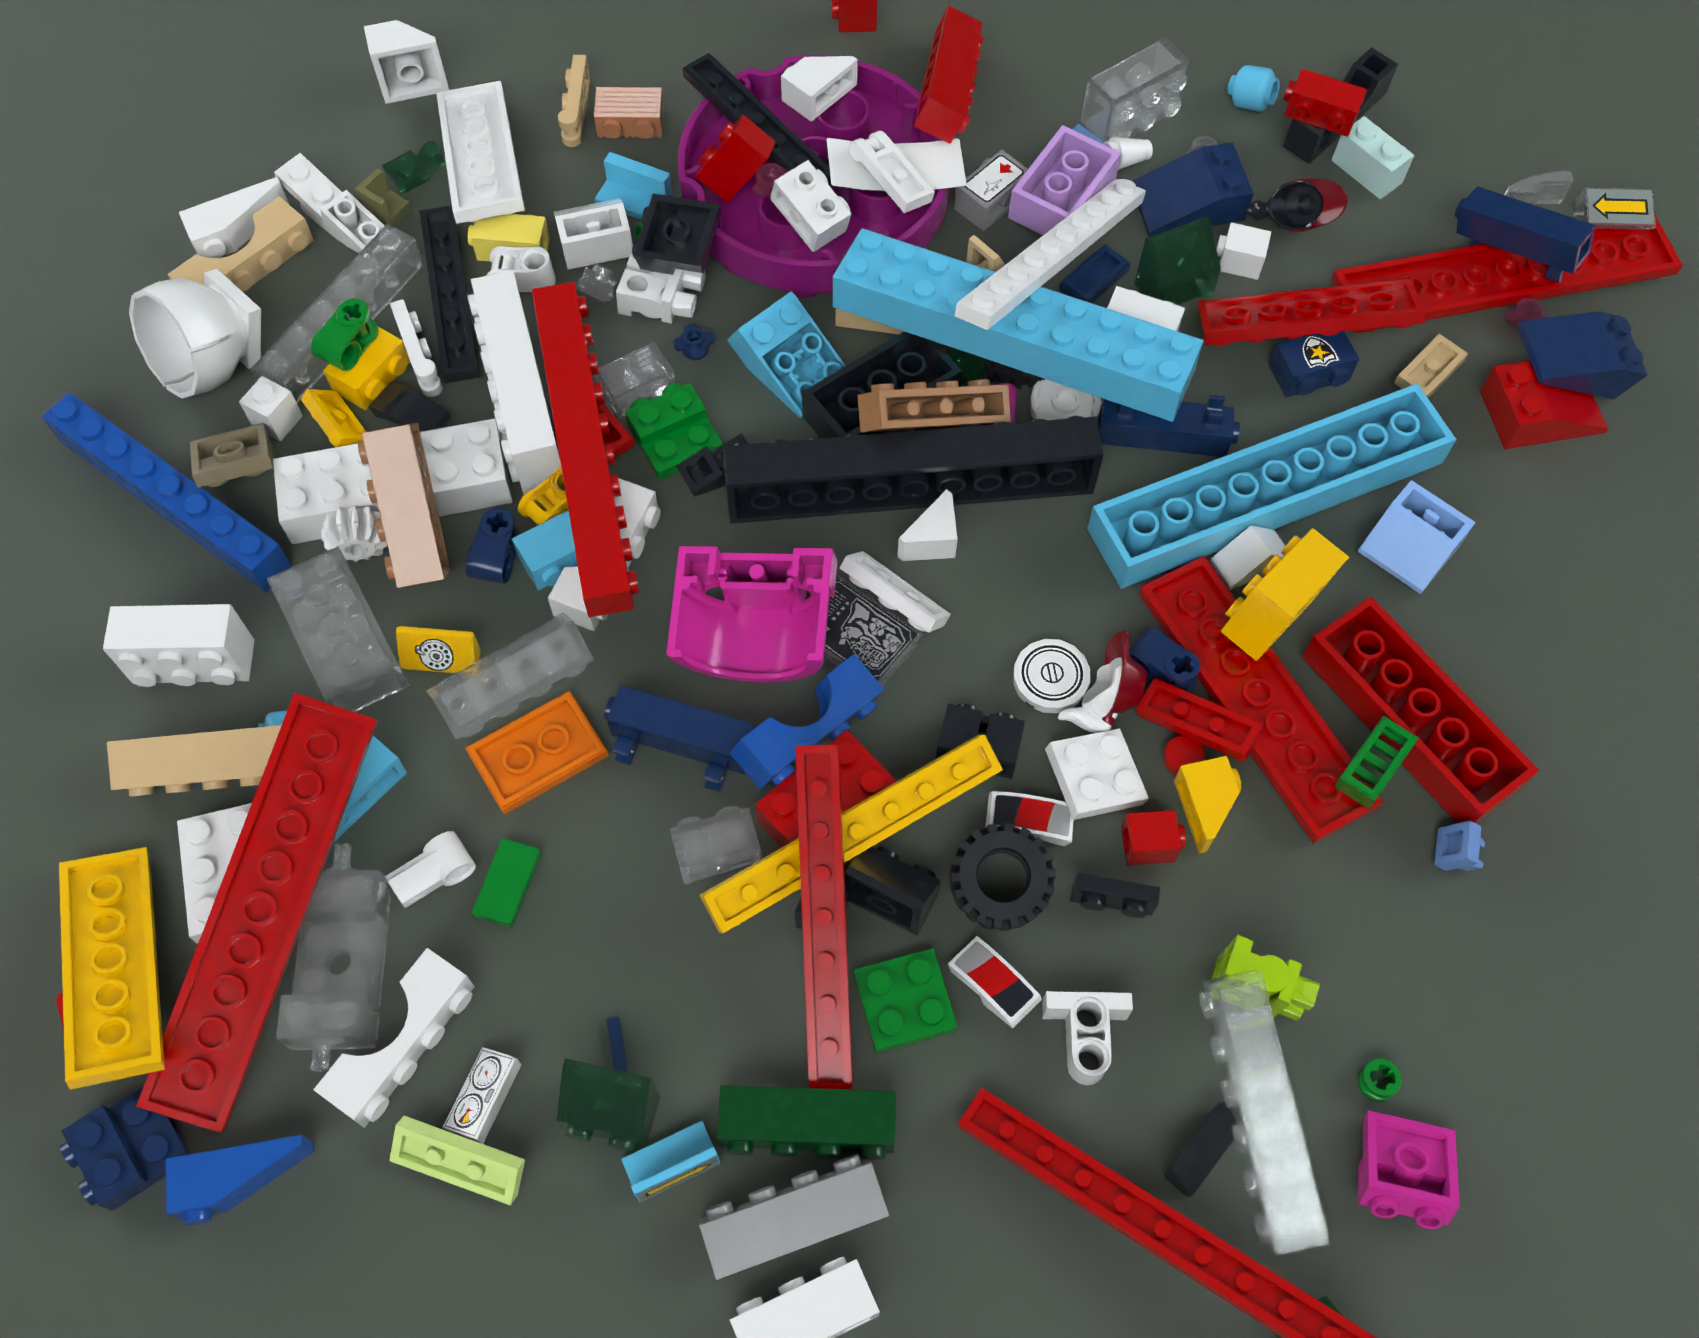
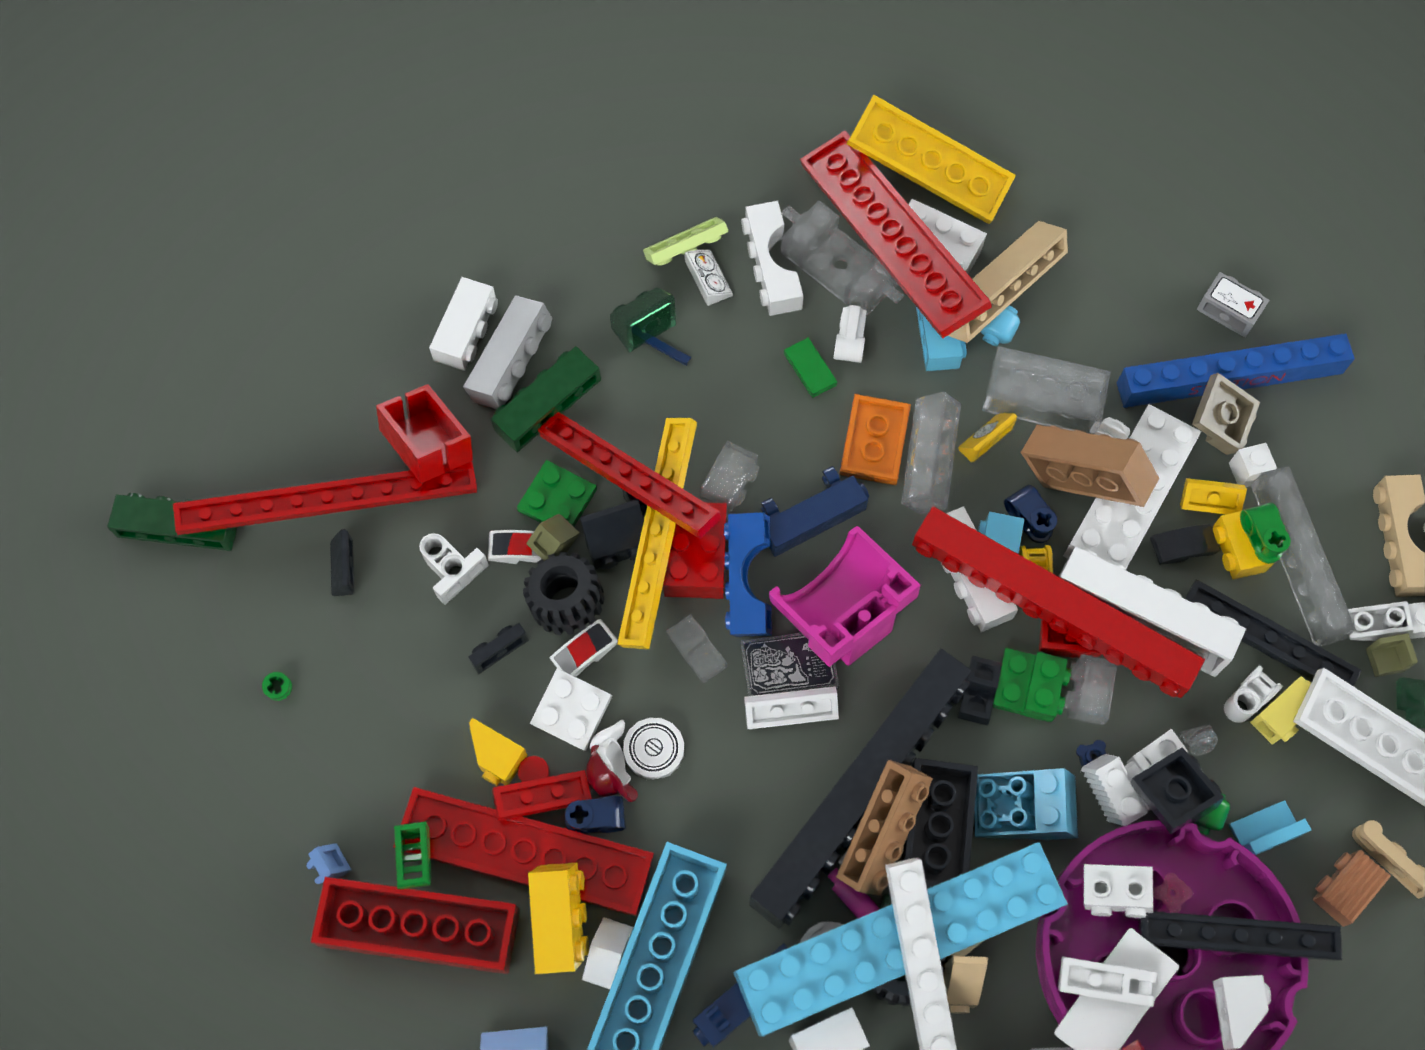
camera: 135 degrees right, 5 degrees up
(76, 546) = (1232, 304): none -> brick
(121, 1150) = (830, 115): dark blue plate -> none
(179, 644) = (1104, 304): white brick -> none
(195, 331) = (1345, 453): white plate -> none
(224, 1177) = (778, 141): blue slope -> none
(417, 349) = (1235, 581): white plate -> none
(594, 233) = (1250, 766): white slope -> none
(670, 1161) = (590, 326): medium azure panel -> none
(714, 297) = (1113, 790): none -> white brick
(735, 158) = (1212, 882): red brick -> none
(921, 721) = (696, 648): none -> clear slope
(932, 533) = (808, 769): white slope -> none
(957, 941) = (552, 537): none -> olive panel
(986, 1196) = (430, 435): none -> red piece
(1001, 729) = (665, 656): black piece -> none
(1152, 837) = (506, 699): red brick -> none
(1265, 1113) = (322, 592): clear brick -> none
(1285, 987) = (376, 665): lime hips -> none
(1408, 1170) = (227, 647): dark pink plate -> none

